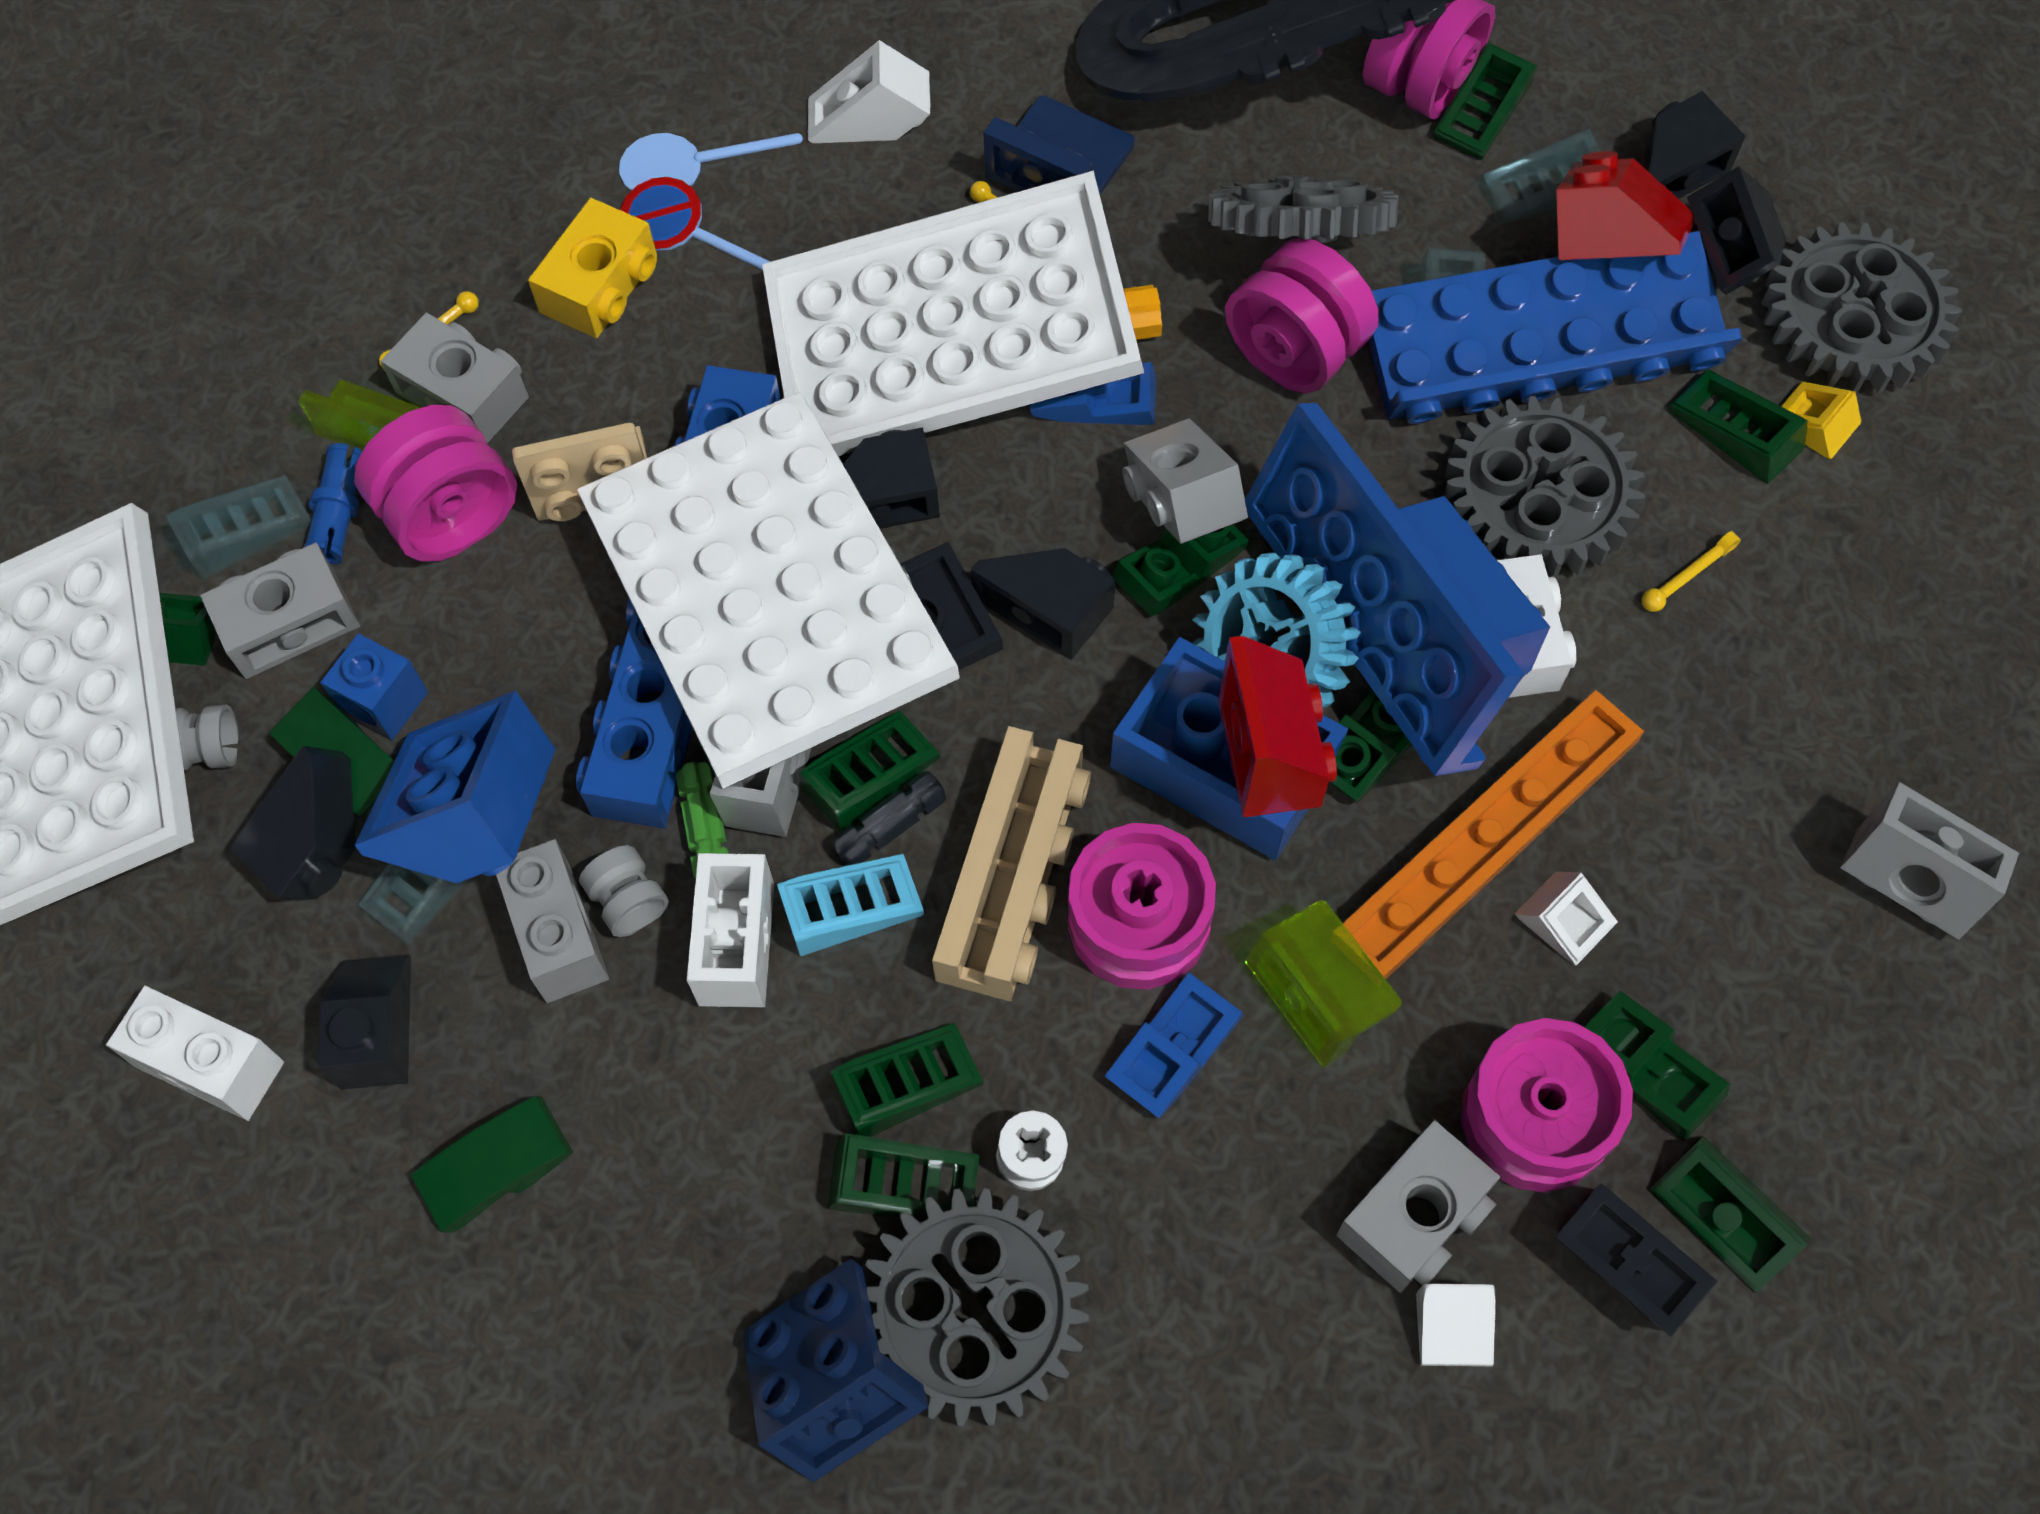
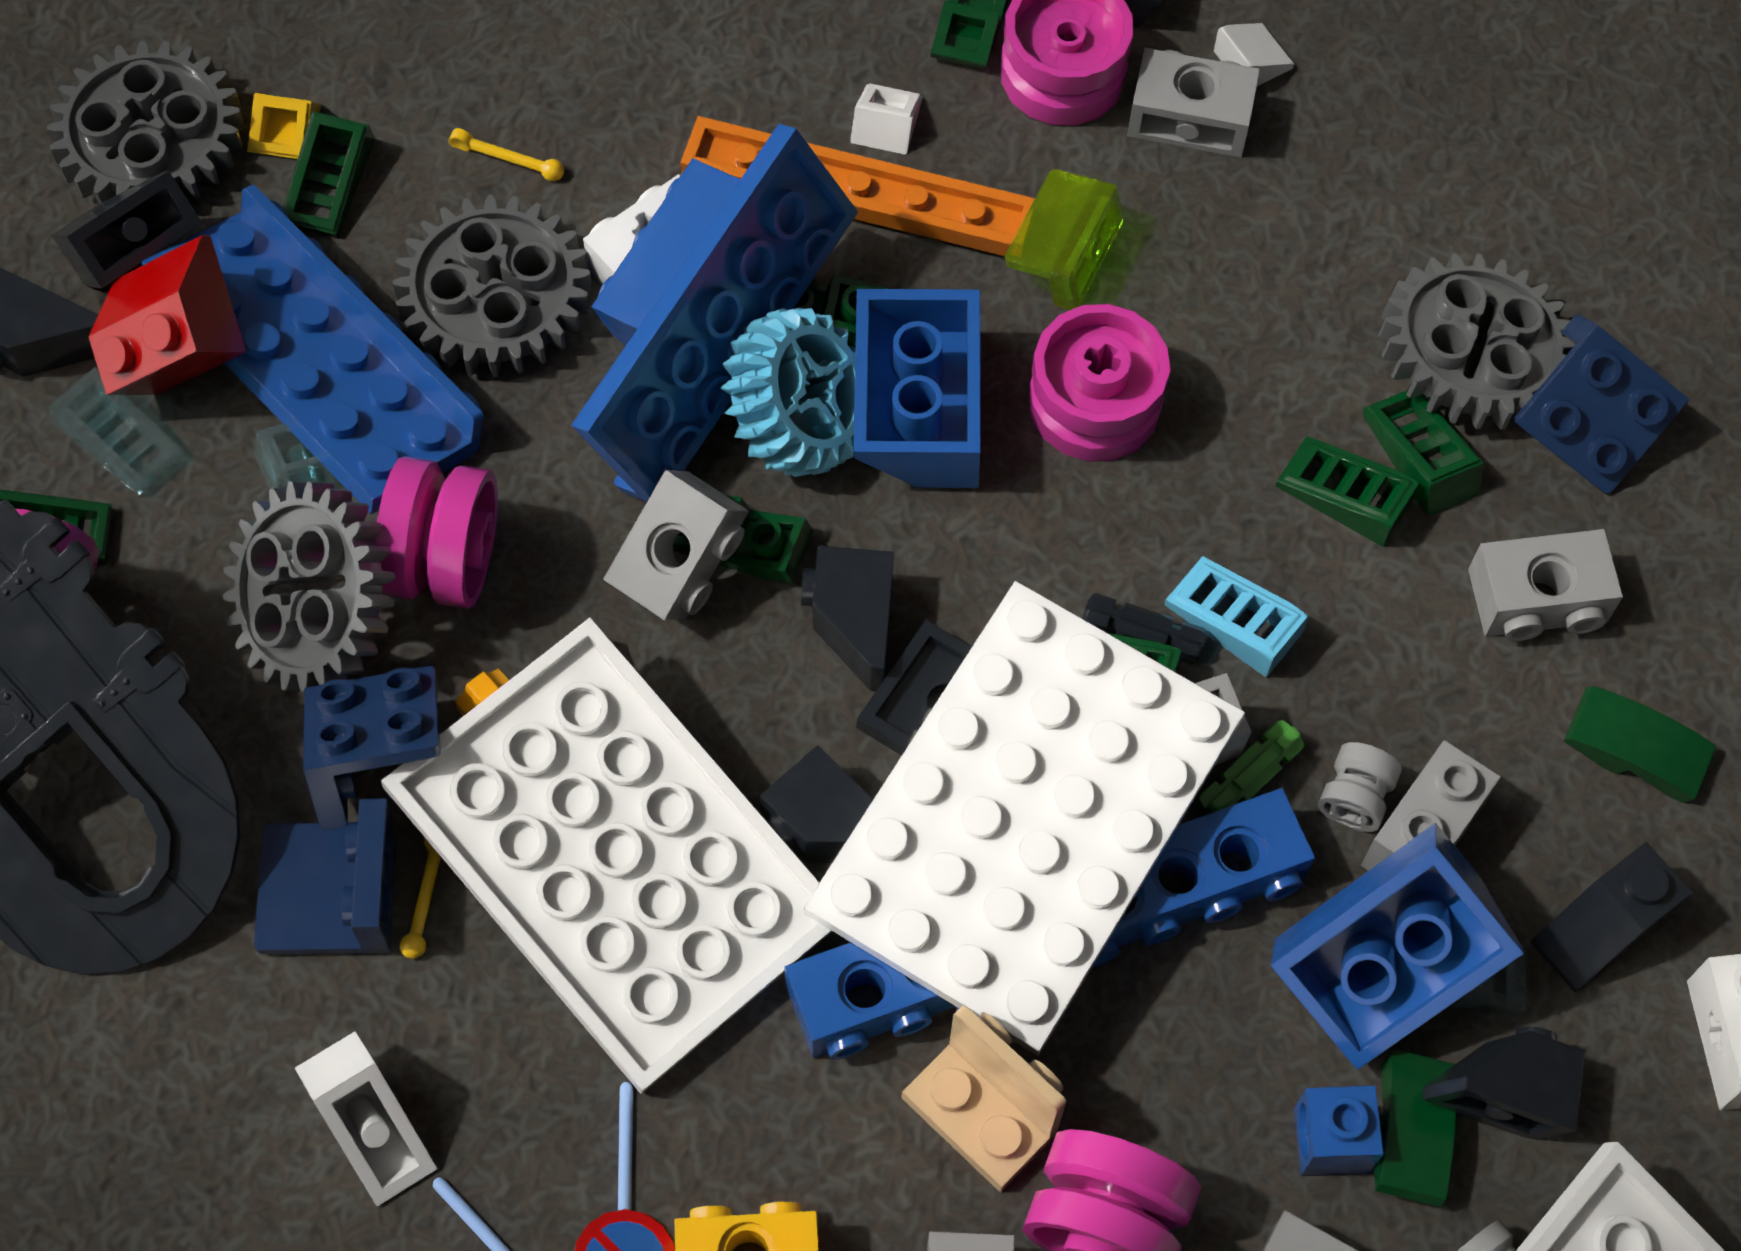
camera: 125 degrees left, 0 degrees up
(686, 1222) = (1570, 563): none -> light grey brick
(731, 930) = (1338, 665): white brick -> none
(1009, 866) = (1122, 503): tan brick -> none
(1022, 1162) = (1325, 372): white wheel -> none
(1148, 189) = (363, 728): none -> dark blue bracket
(1174, 1045) = (1193, 323): blue slope -> none
(1273, 730) = (922, 310): red slope -> none

